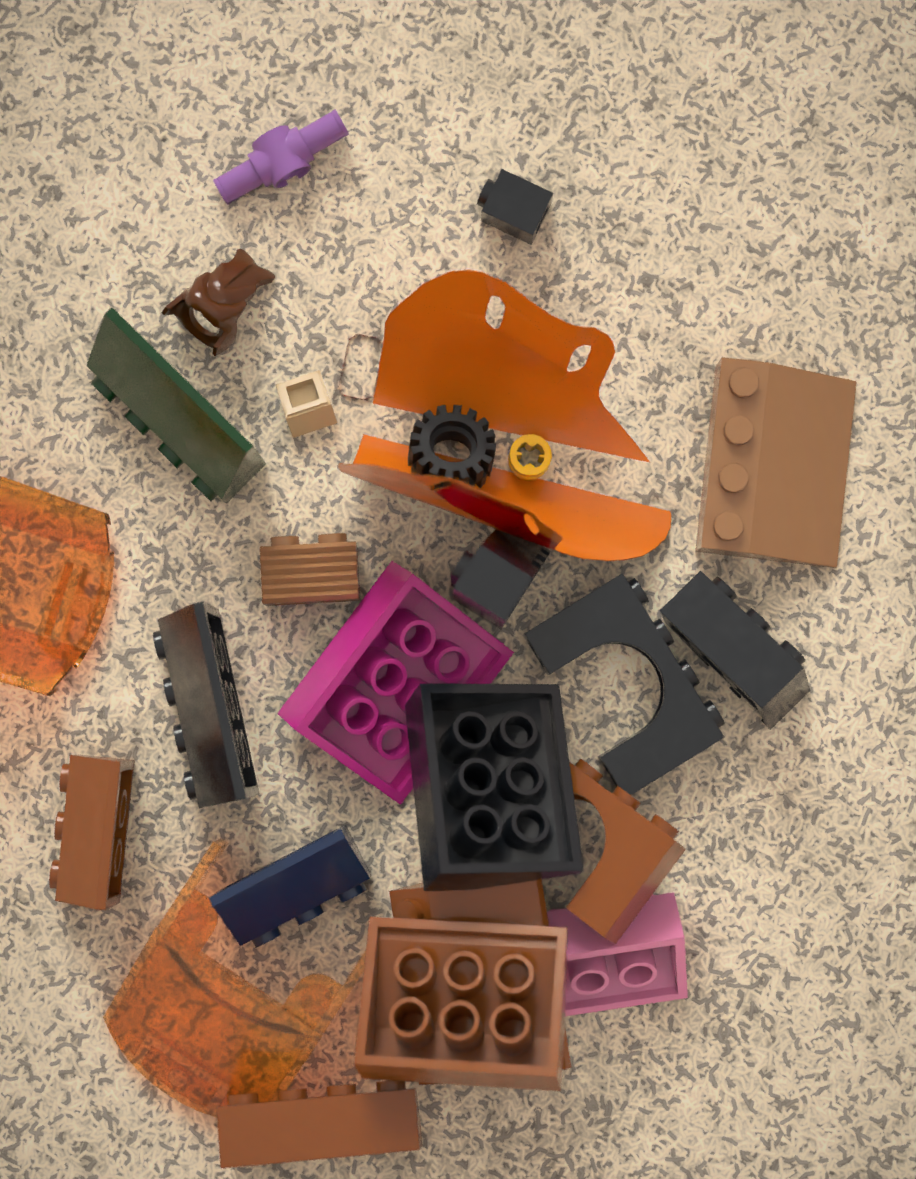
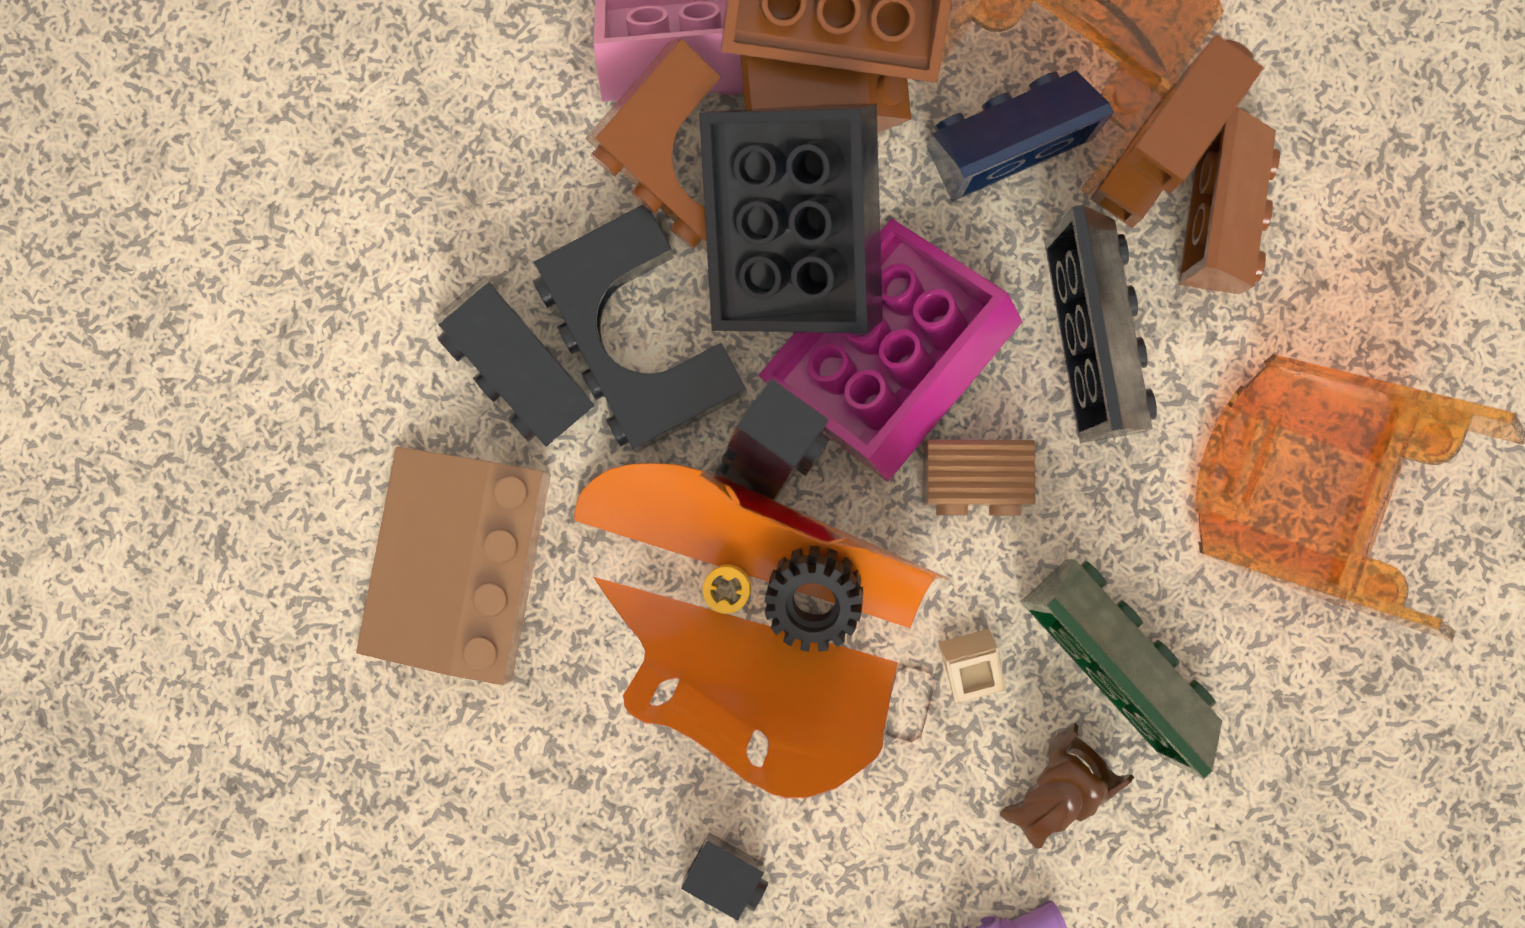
camera: 175 degrees left, 0 degrees up
(150, 881) = (1178, 130): none -> dark orange arch

